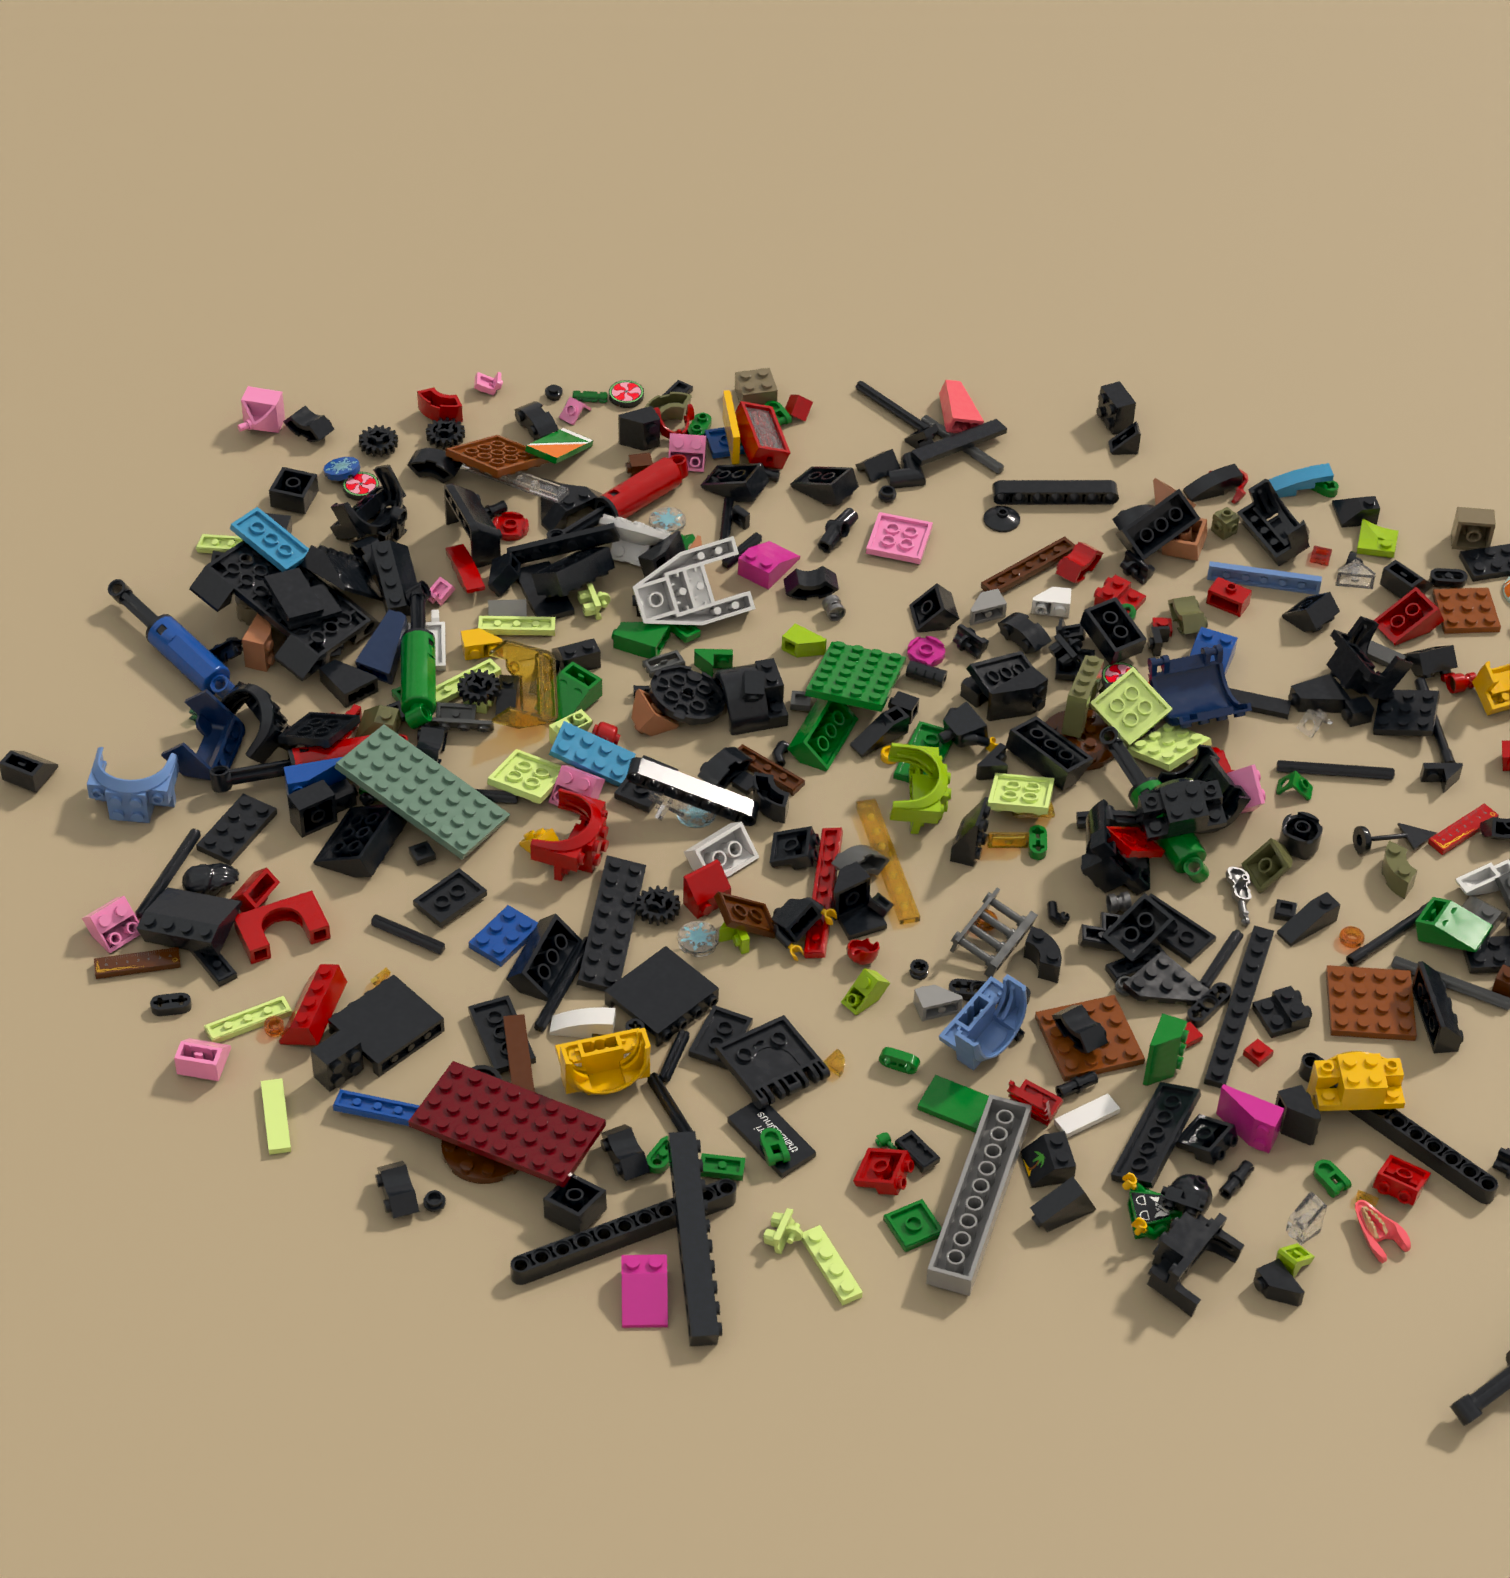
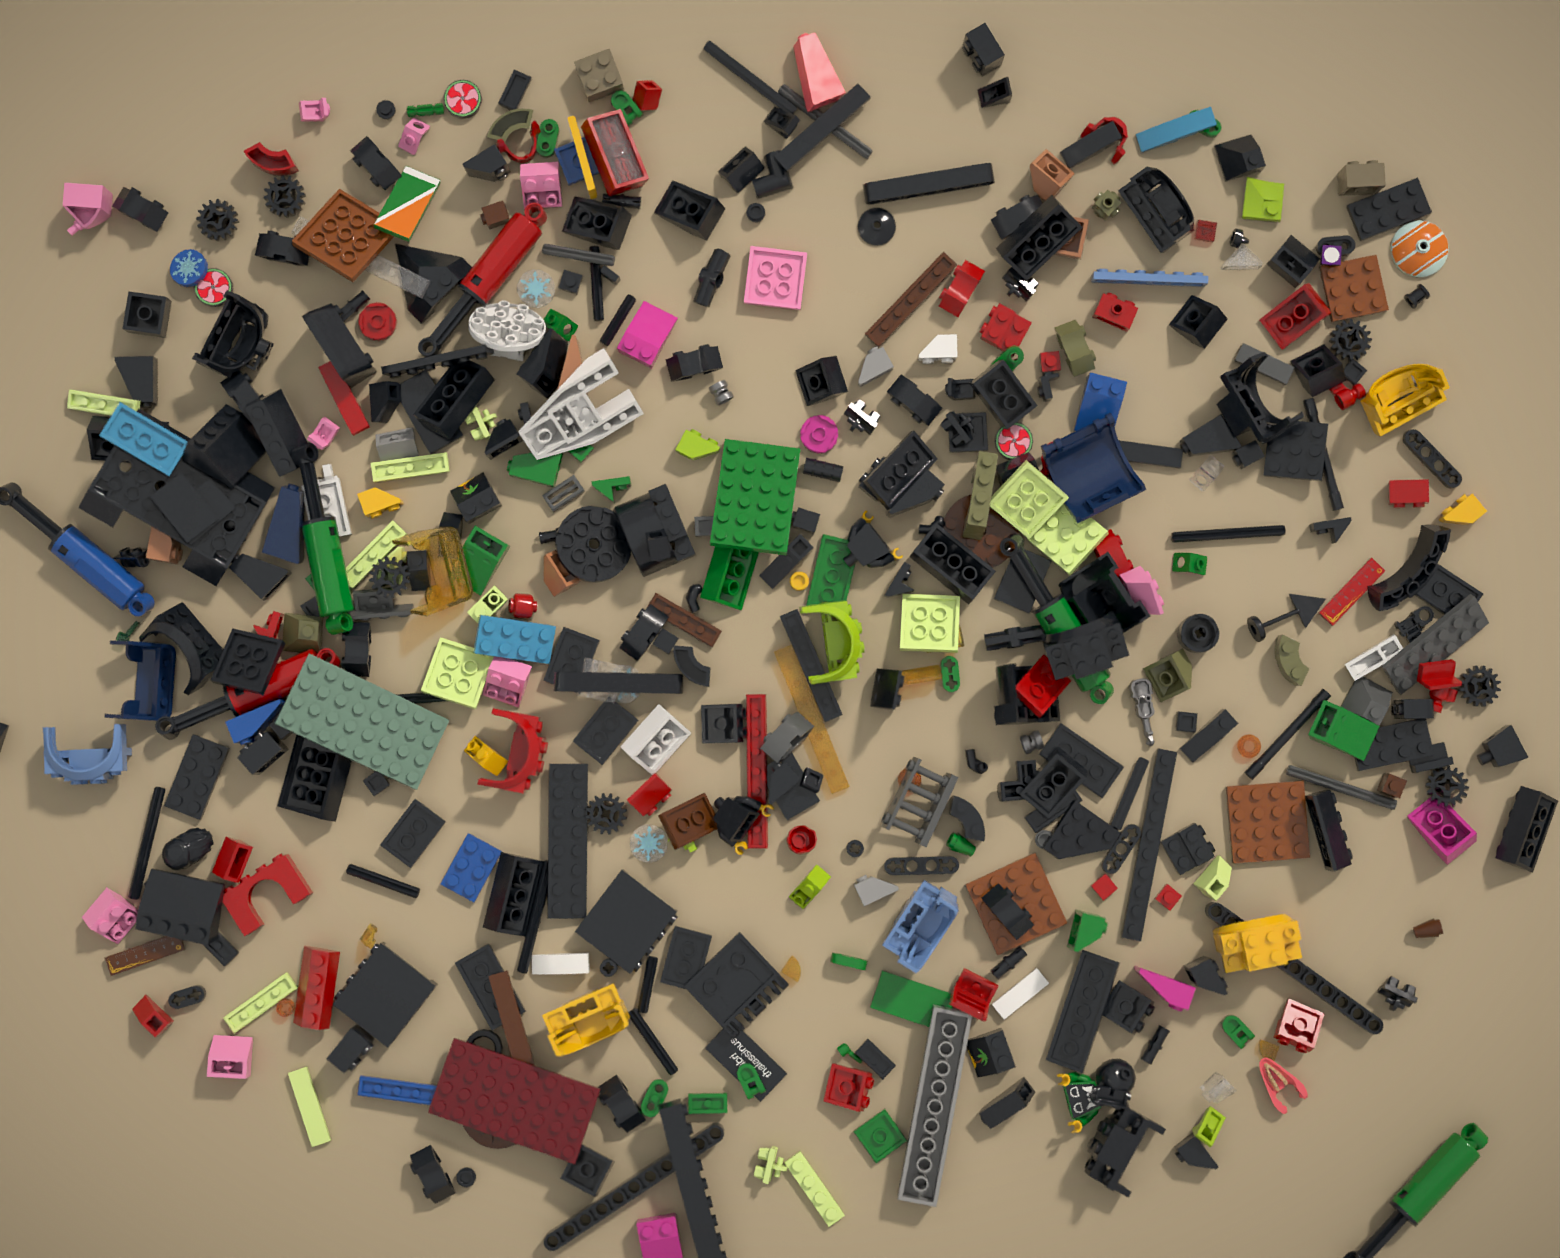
camera: 10 degrees left, 40 degrees up
(131, 1012) = (152, 1016): none -> red slope
(612, 612) = (502, 438): none -> black slope
(669, 841) = (605, 731): none -> black plate
(701, 520) = (570, 282): none -> black plate
(711, 498) = (577, 254): none -> dark grey axle
(898, 830) = (810, 664): none -> black plate
(1033, 977) = (959, 844): none -> green cone
(1114, 784) = (1013, 587): none -> black tile
(1307, 1037) = (1214, 878): none -> yellowish green slope
(1443, 578) = (1330, 255): none -> tile
(1464, 640) = (1358, 343): none -> black gear
(1466, 666) = (1354, 372): none -> black tile

